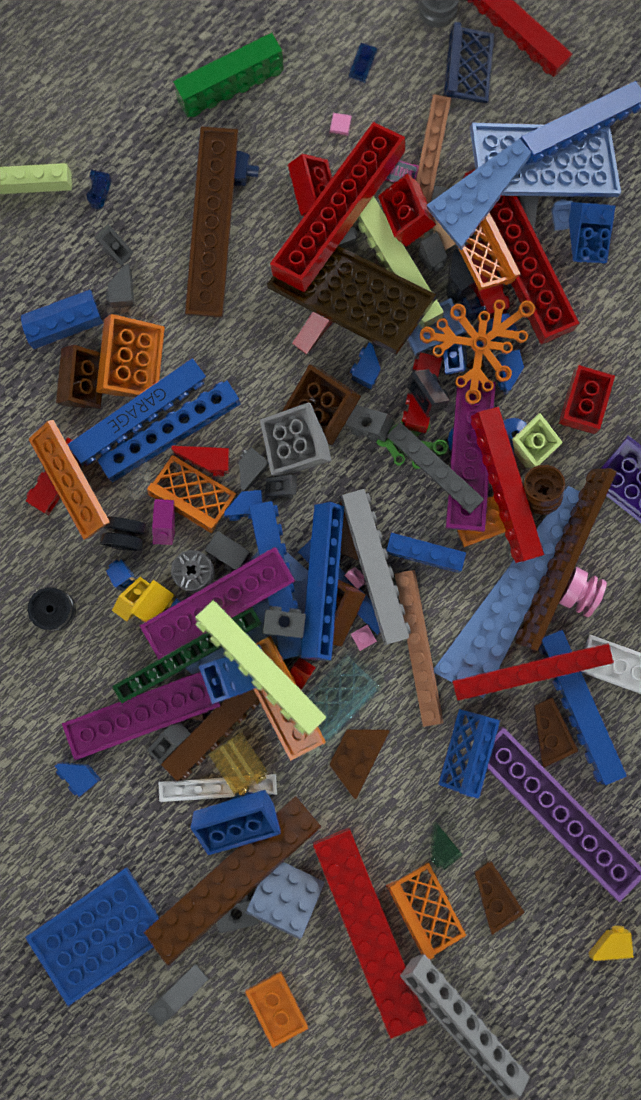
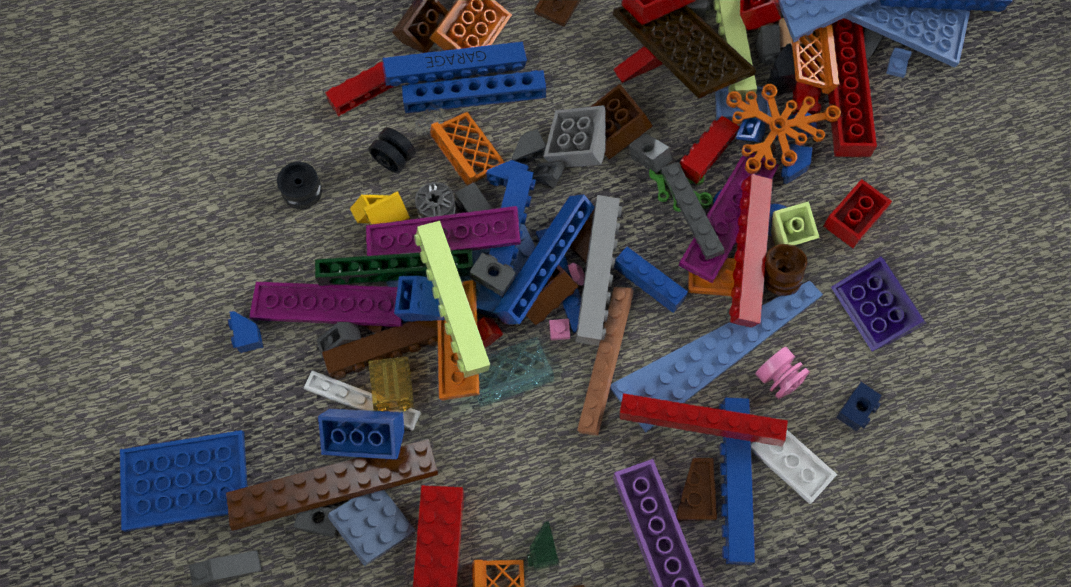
camera: 25 degrees right, 15 degrees down
(68, 479) = (369, 87): orange plate -> none
(120, 574) = (372, 183): blue slope -> none
(163, 522) = (431, 156): magenta slope -> none
(208, 458) = (498, 127): red slope -> none
(356, 757) = (502, 430): reddish brown wing -> none
(368, 367) = (668, 112): blue slope -> none
(427, 392) = (713, 142): black slope -> none
(473, 308) = (781, 100): panel -> none
(478, 756) = (619, 468): blue fence -> none
(565, 558) = (781, 332): reddish brown plate -> none
(590, 231) = (919, 82): blue slope -> none

